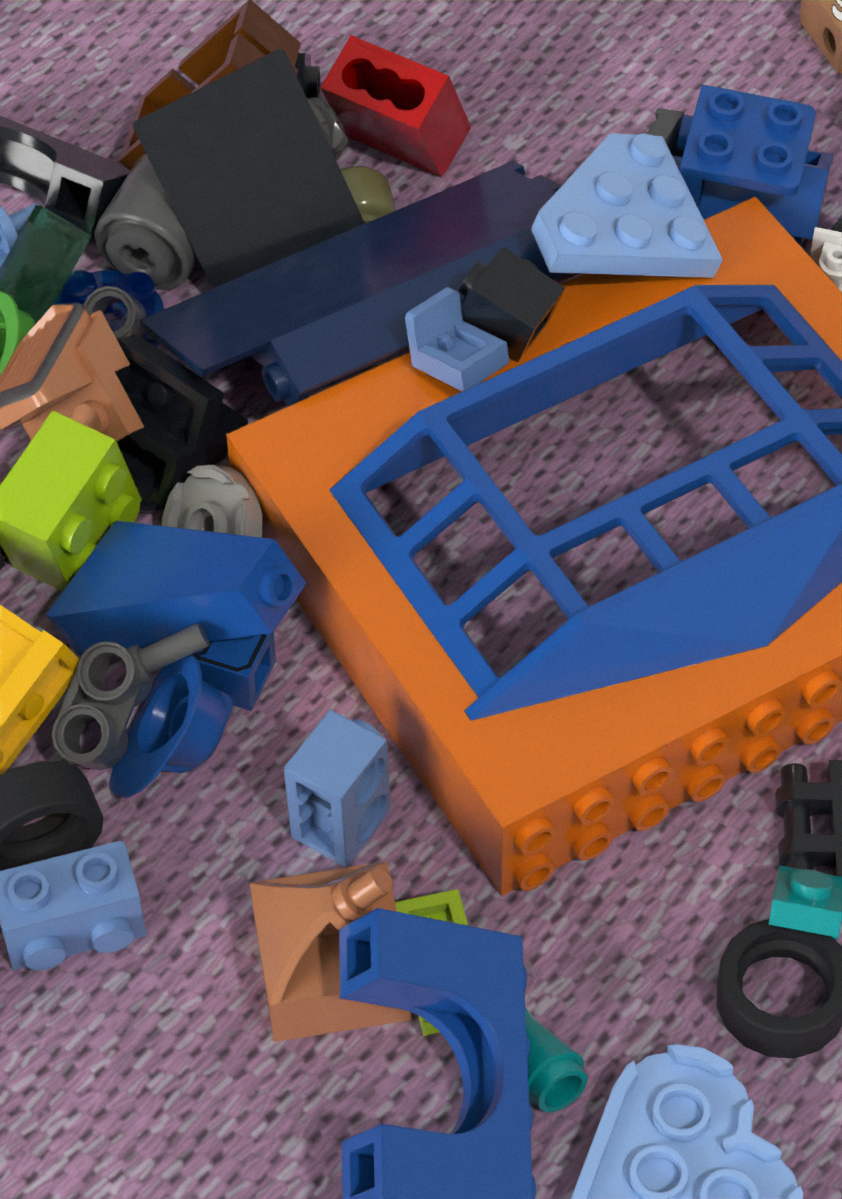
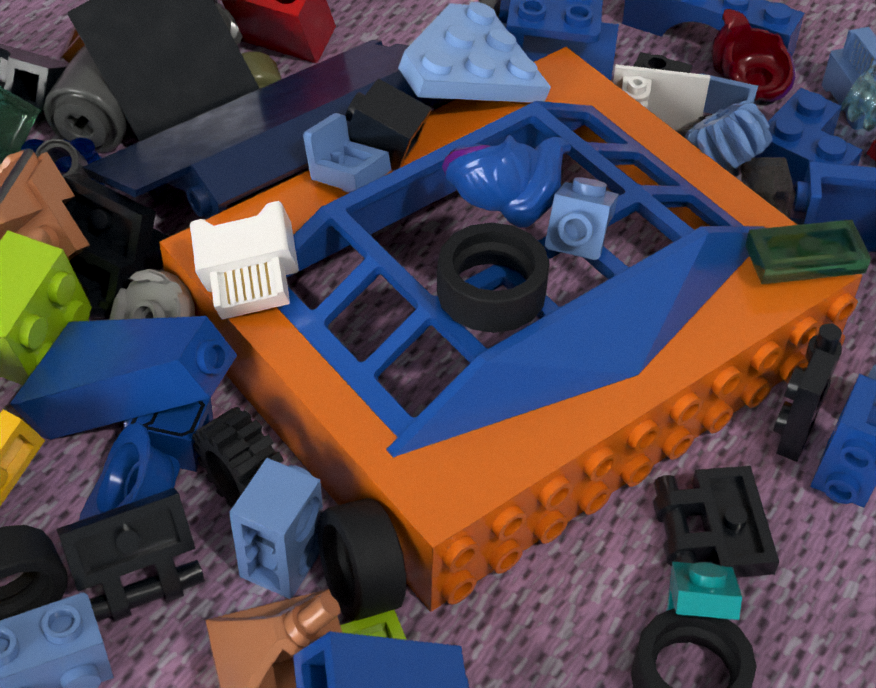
camera: 10 degrees left, 5 degrees down
(91, 702) = (51, 472): dark grey beam -> none
(171, 787) = (126, 541): none -> black plate
(294, 695) = (233, 452): none -> black tyre
(325, 473) = (246, 261): none -> white piece
(426, 831) = (361, 559): none -> black tyre
(601, 480) = (496, 245): none -> black tyre
(641, 398) = (508, 177): none -> blue hair
(720, 450) = (580, 218): none -> medium blue bracket

